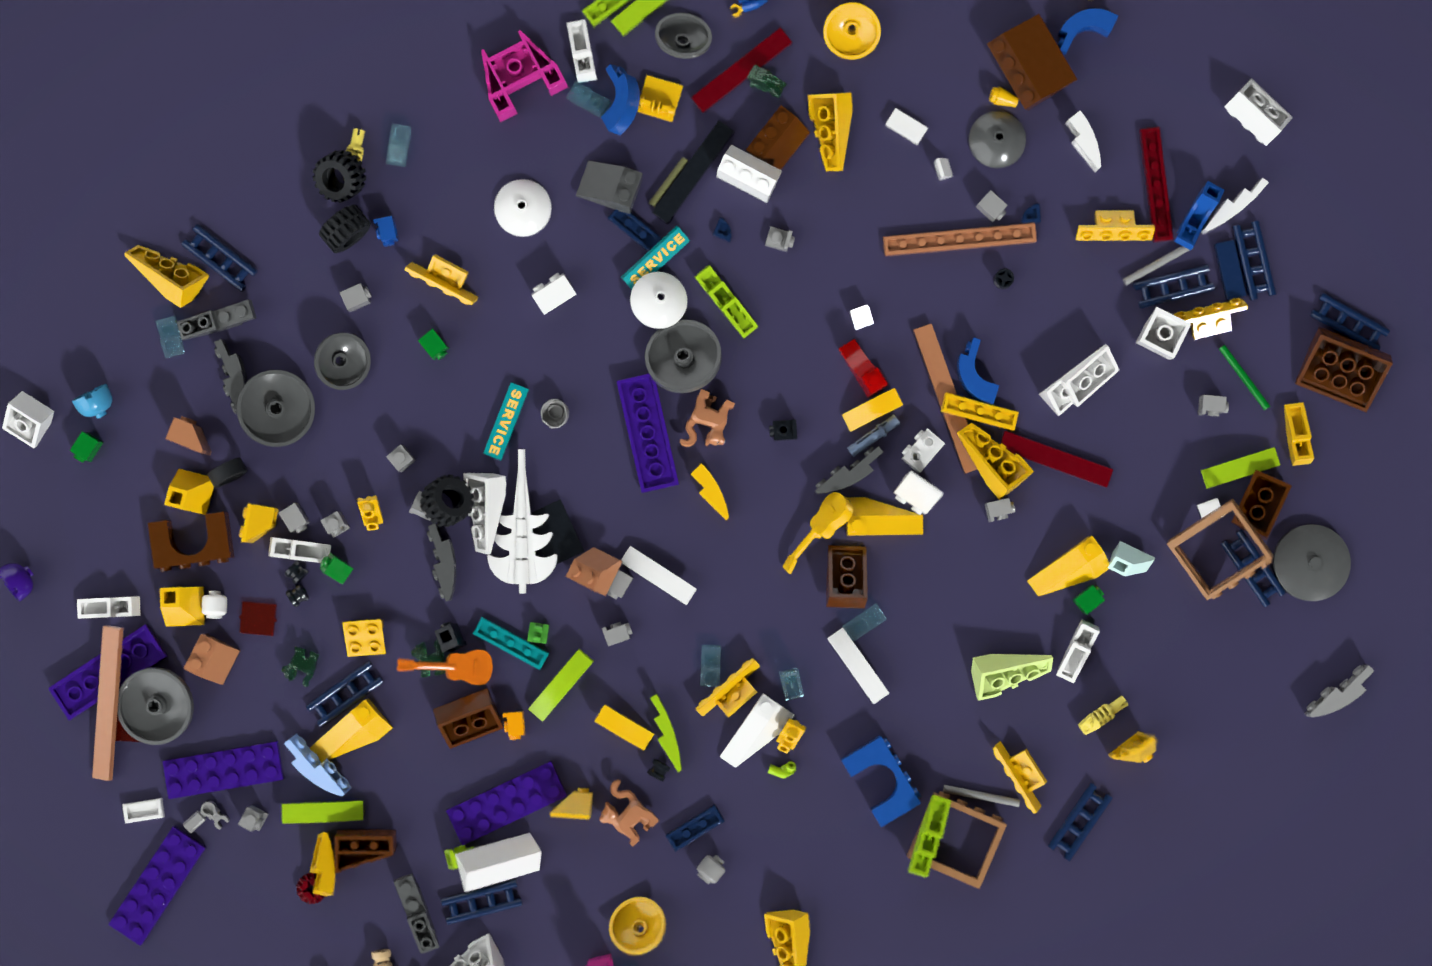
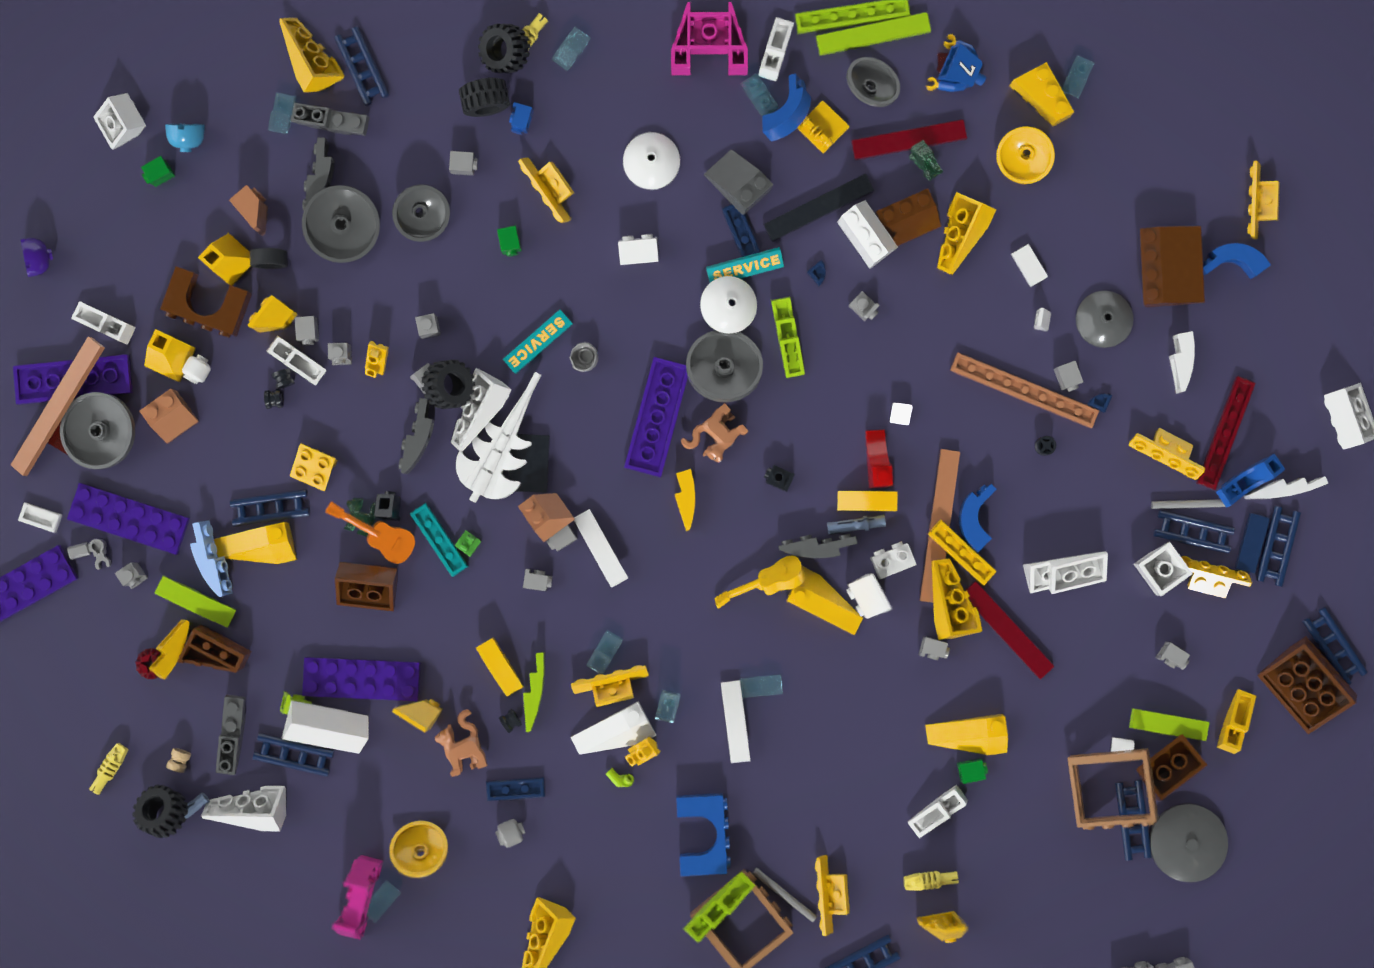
camera: 30 degrees right, 0 degrees up
(258, 618) = (228, 401): clear red piece -> none
(301, 663) = (246, 461): clear green animal -> none
(335, 568) = (319, 392): green brick -> none
(515, 724) = (404, 613): light orange brick -> none
(561, 685) = (463, 600): lime slope -> none
(669, 180) = (791, 205): olive bar -> none
(846, 577) = (766, 637): reddish brown slope -> none
(1000, 671) = (858, 793): yellowish green wedge -> none
(1002, 97) = (1128, 283): yellow cone -> none
(1129, 560) = (1026, 755): light aqua slope -> none
(1244, 377) = (1214, 645): green bar -> none

